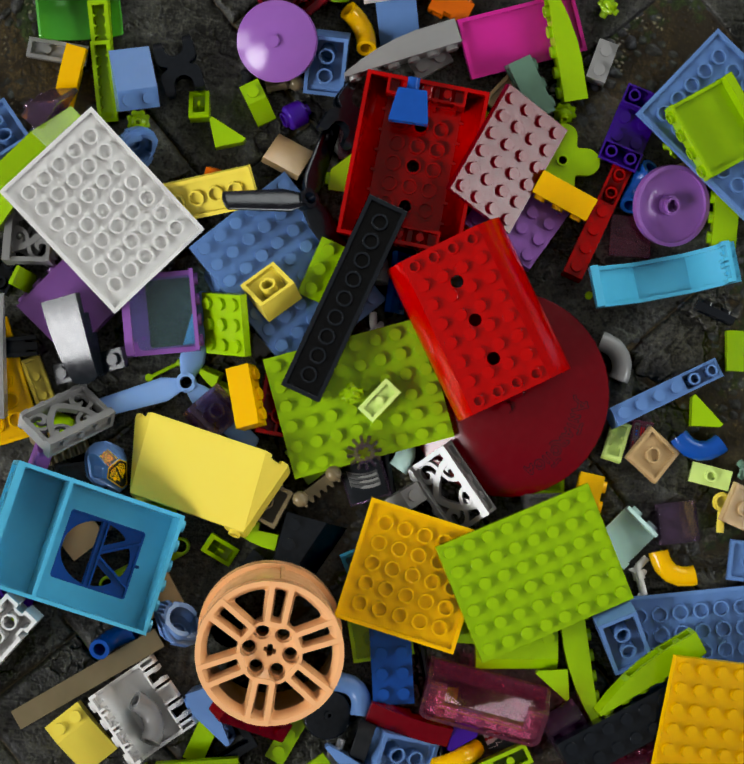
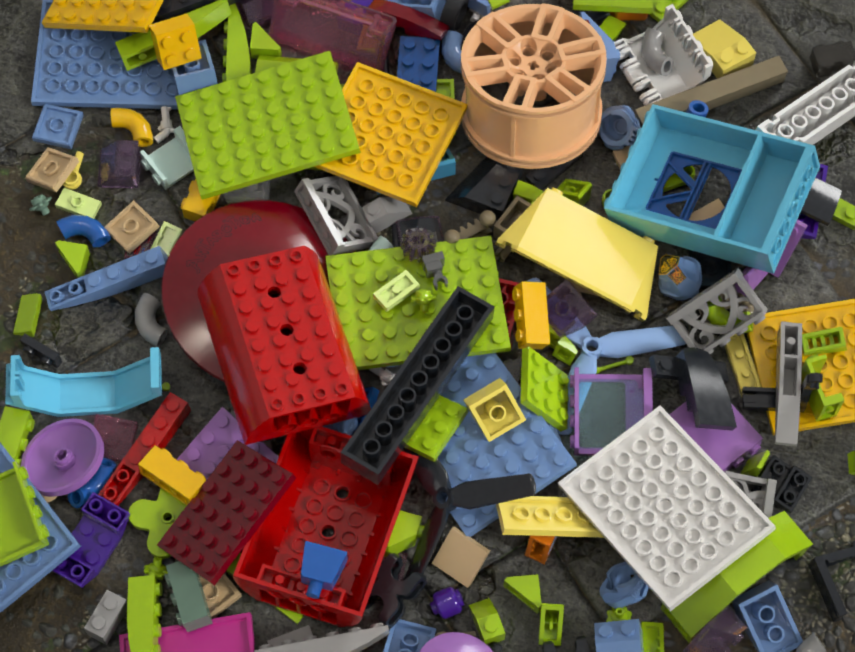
camera: 175 degrees left, 20 degrees down
(346, 430) = (433, 266): none -> dark grey piece
(643, 653) = (175, 41): none -> yellow brick

